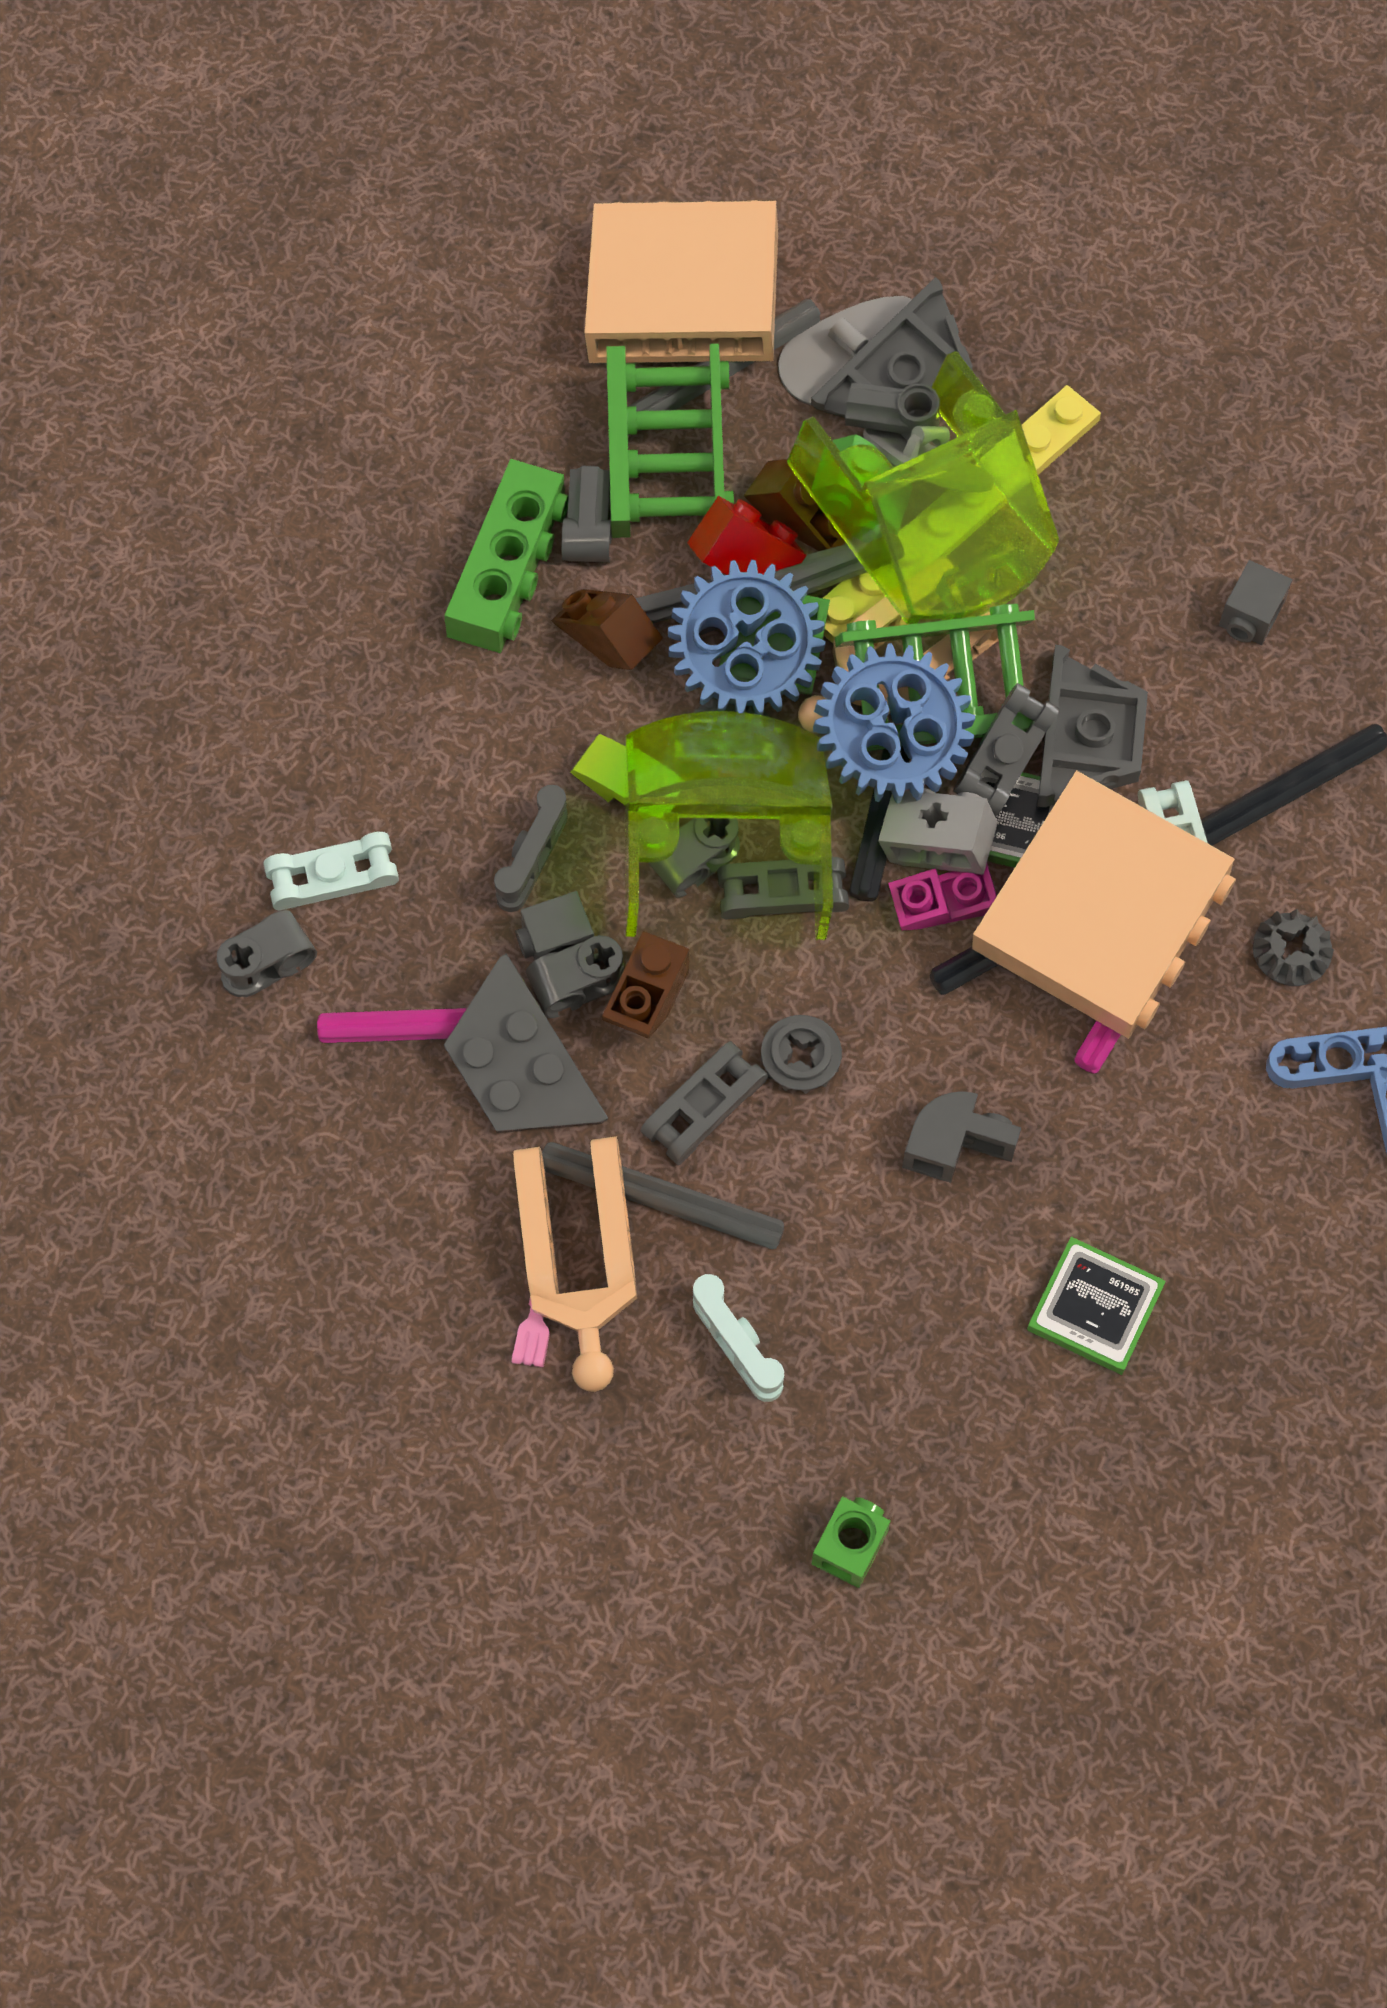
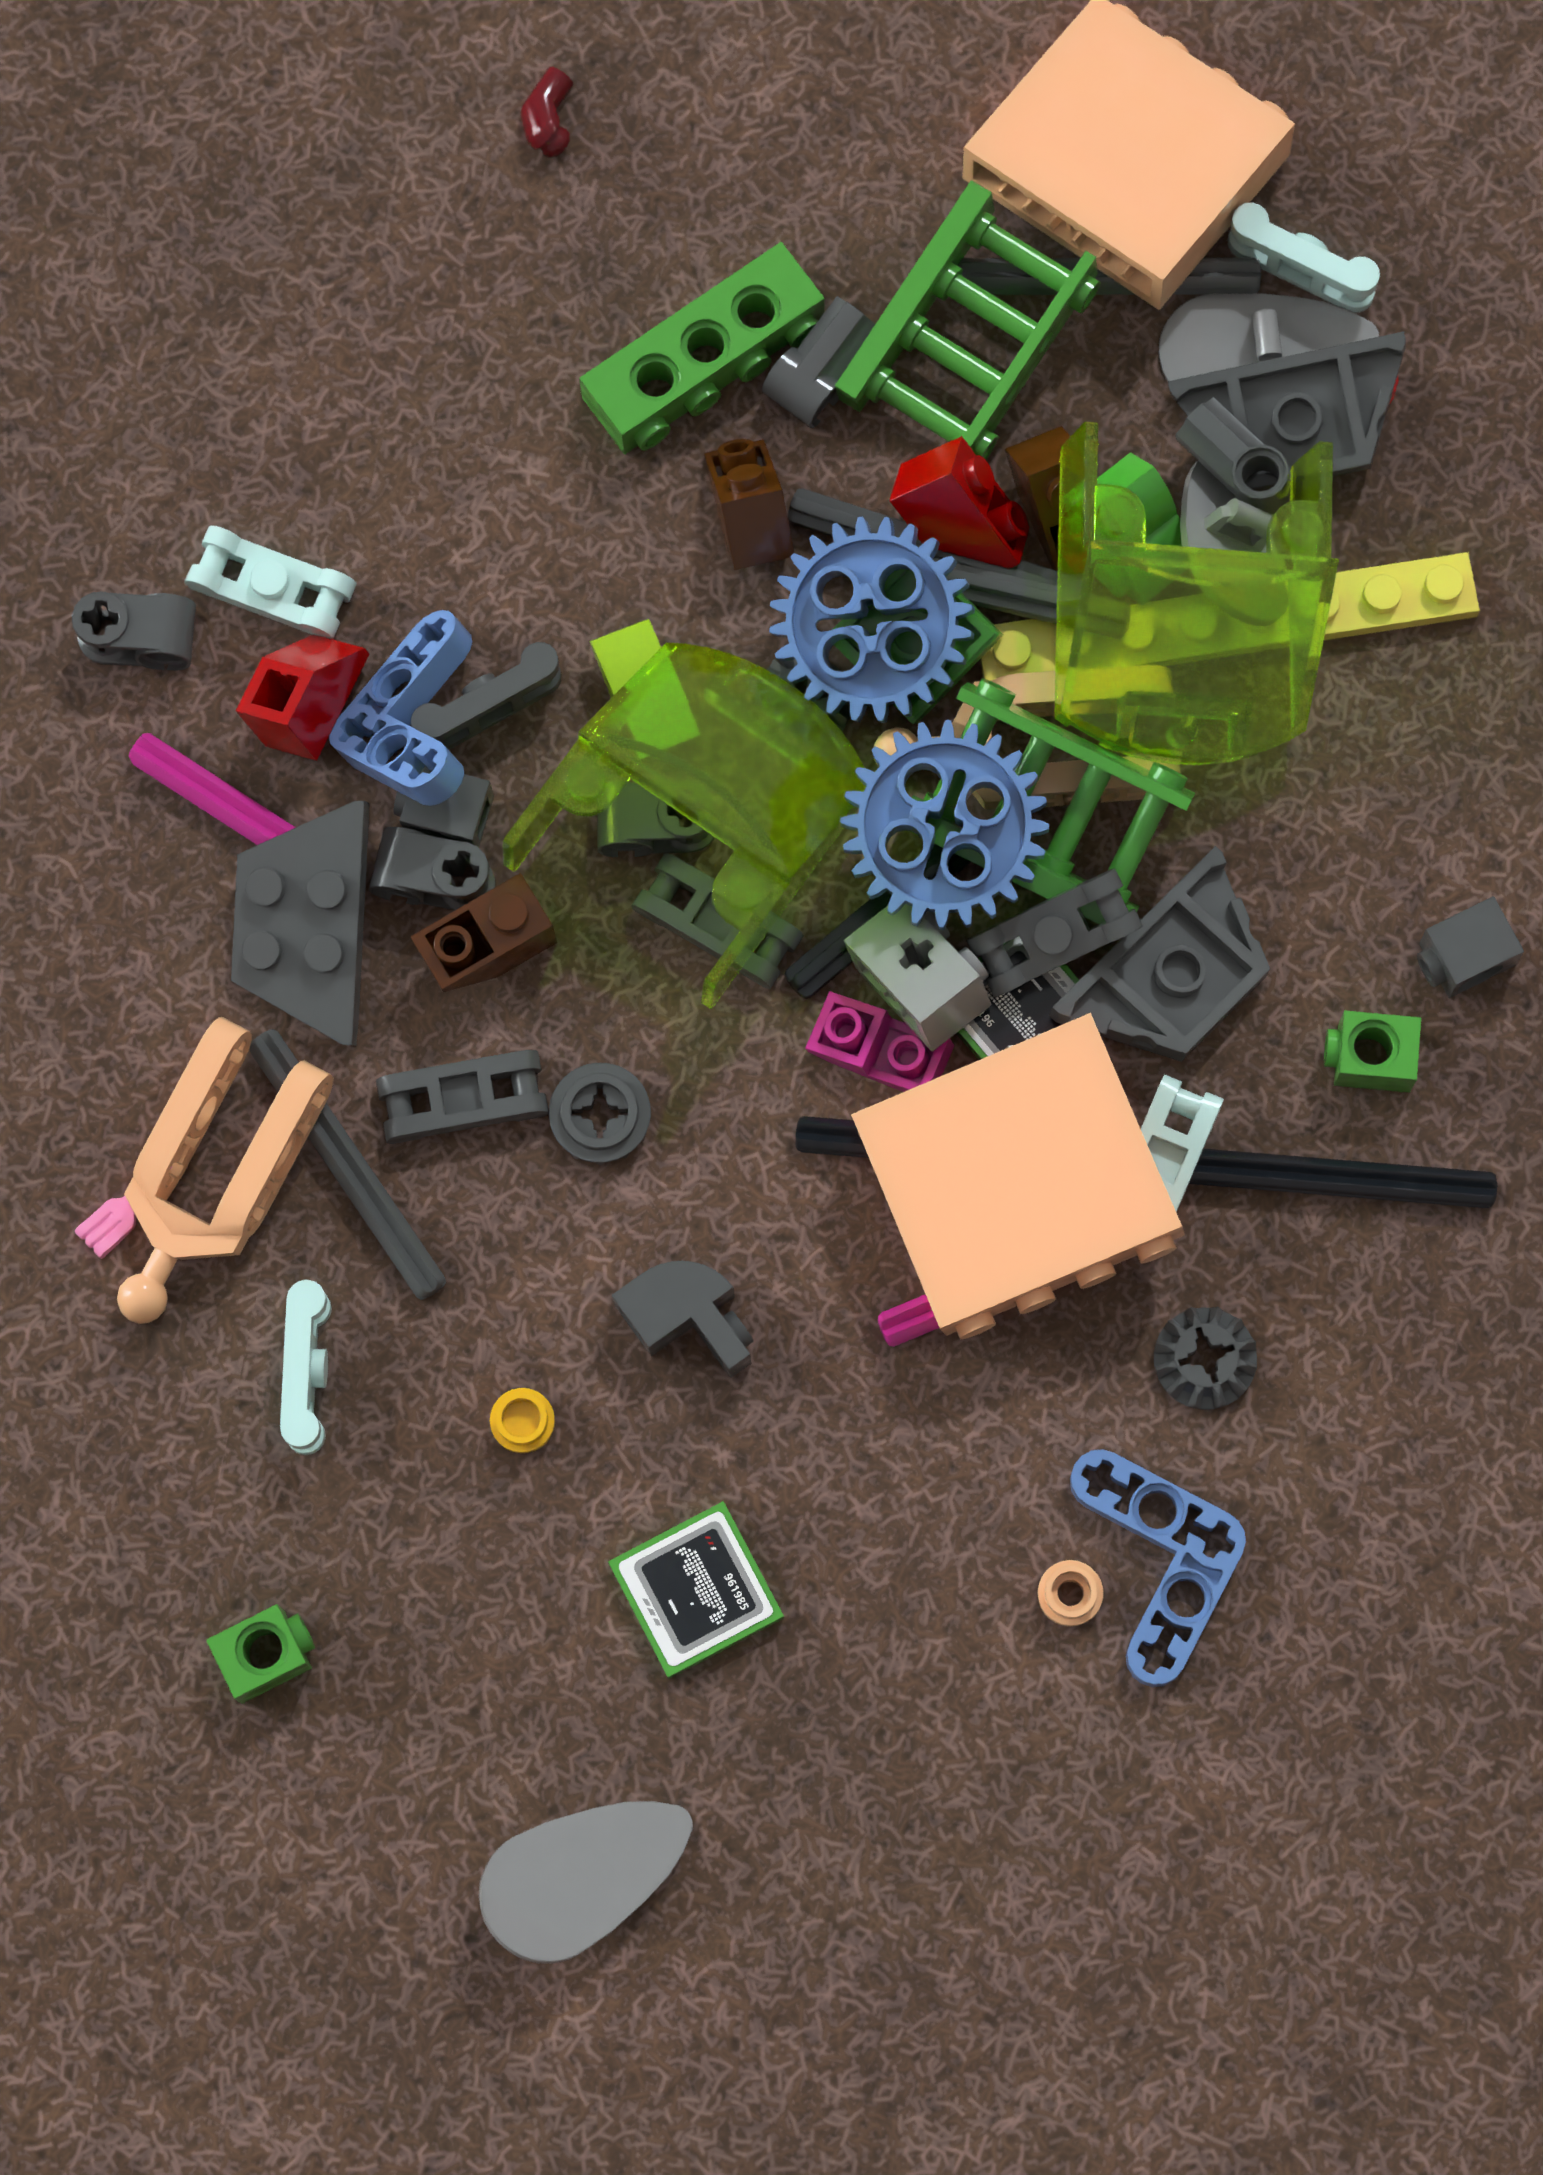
camera: 40 degrees right, 10 degrees up
(291, 486) = (540, 113): none -> dark red arm
(409, 923) = (301, 693): none -> red slope
(472, 846) = (427, 661): none -> medium blue beam
(836, 281) = (1303, 260): none -> light aqua plate
(902, 1277) = (522, 1420): none -> yellow plate
(1172, 1534) = (579, 1877): none -> light grey shield
(1256, 682) = (1394, 1032): none -> bright green brick
(1328, 1129) = (1070, 1572): none -> light nougat plate

